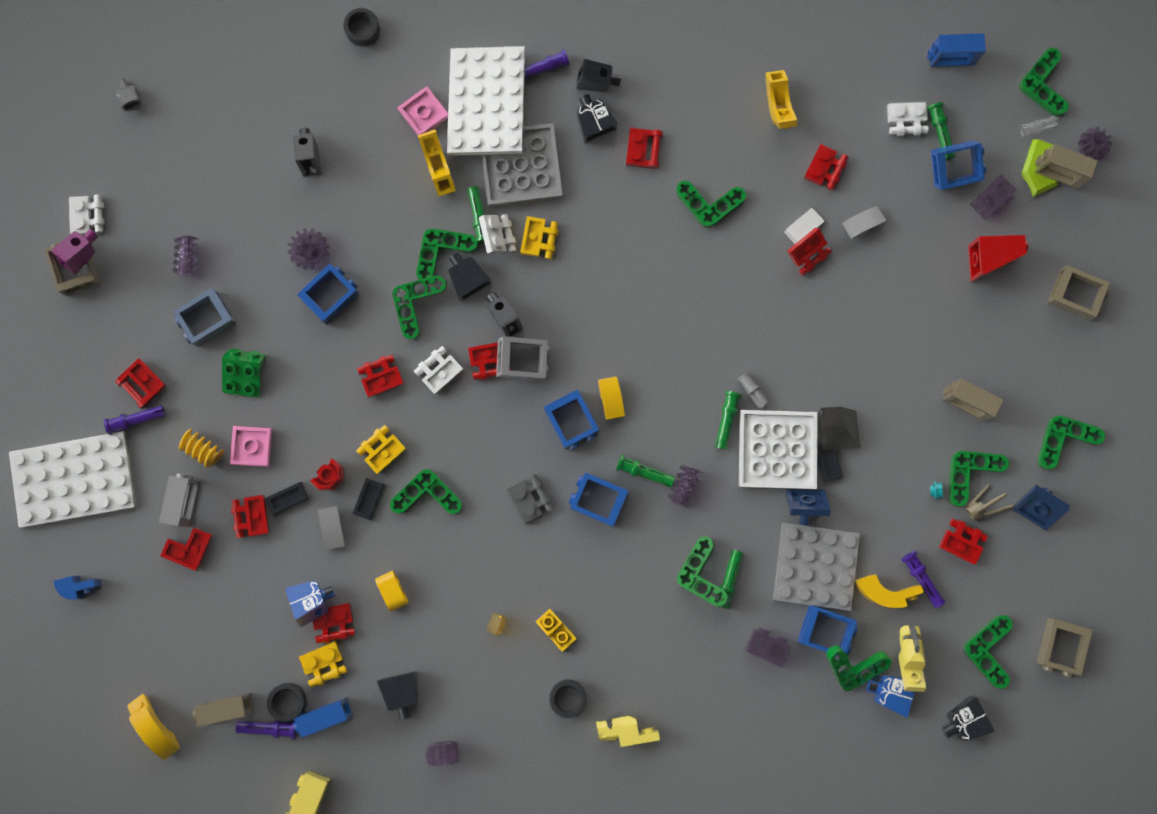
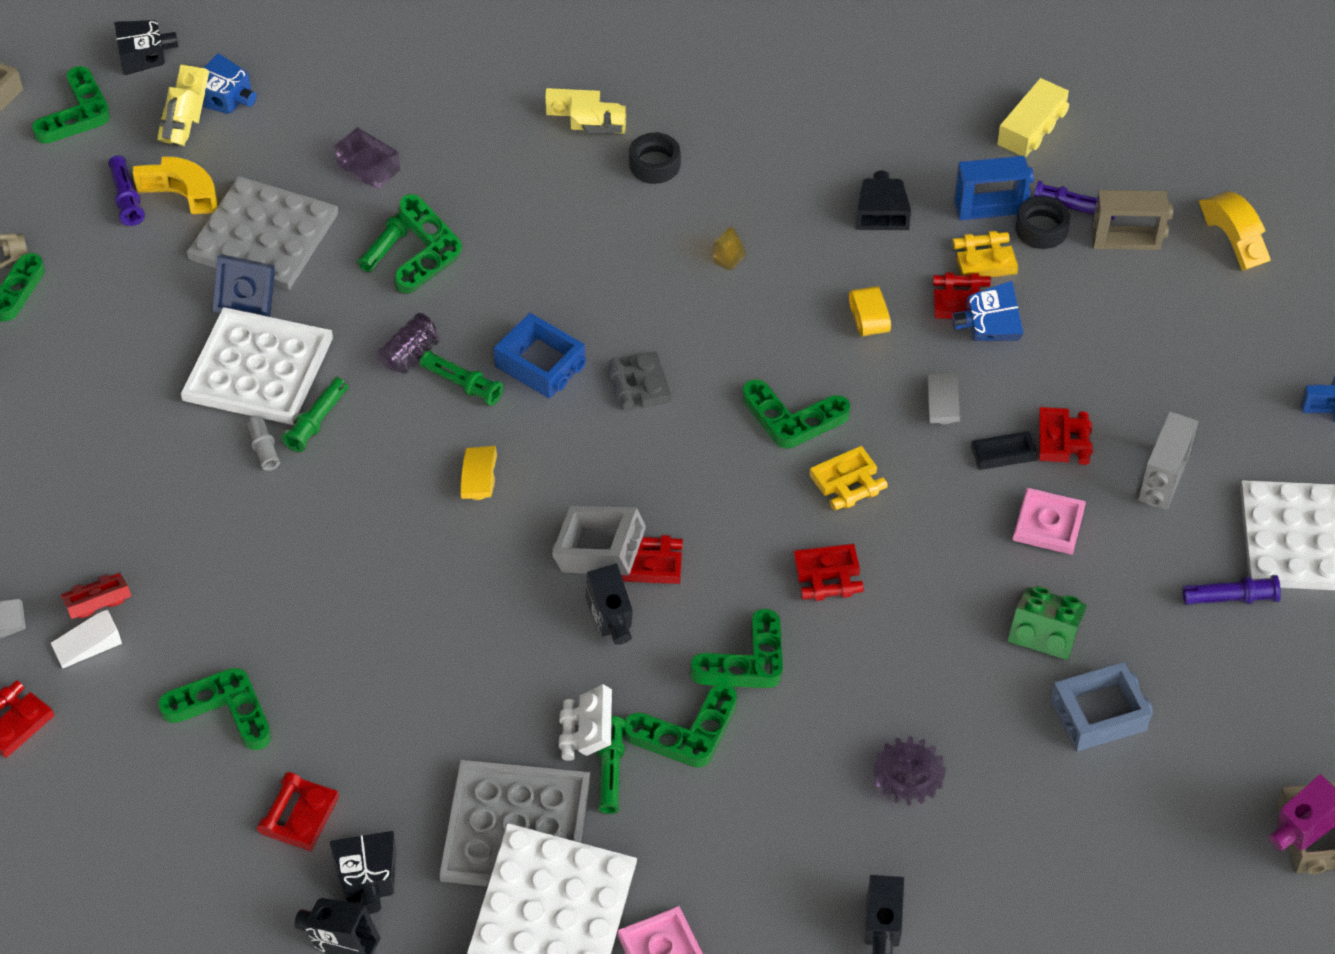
camera: 165 degrees left, 30 degrees down
(80, 214) = (1305, 912): white plate -> none
(146, 380) = (1212, 644): red plate -> none
(184, 256) = (1121, 798): clear purple piece -> none
(189, 554) = (1154, 409): red plate -> none
(200, 450) = (1127, 528): yellow piece -> none
(327, 316) = (912, 679): blue window -> none
(329, 476) = (935, 454): red hair -> none
(368, 499) = (881, 426): black tile -> none
(436, 163) = (659, 845): yellow arch -> none
(442, 374) = (731, 553): white plate -> none
(442, 753) = (838, 129): clear purple gear -> none
(467, 276) = (653, 676): black torso -> none
(533, 237) = (527, 715): yellow plate -> none
(556, 630) = (647, 231): yellow slope -> none
(563, 402) = (565, 477): blue window -> none
(779, 100) = (42, 821): yellow arch -> none
(808, 624) = (308, 162): blue window -> none
(828, 464) = (190, 341): black tile -> none
(838, 428) = (159, 372): clear smoke slope -> none
(850, 672) = (274, 111): green beam -> none
(936, 490) = (56, 278): teal plate -> none
(961, 547) = (56, 212): red plate -> none

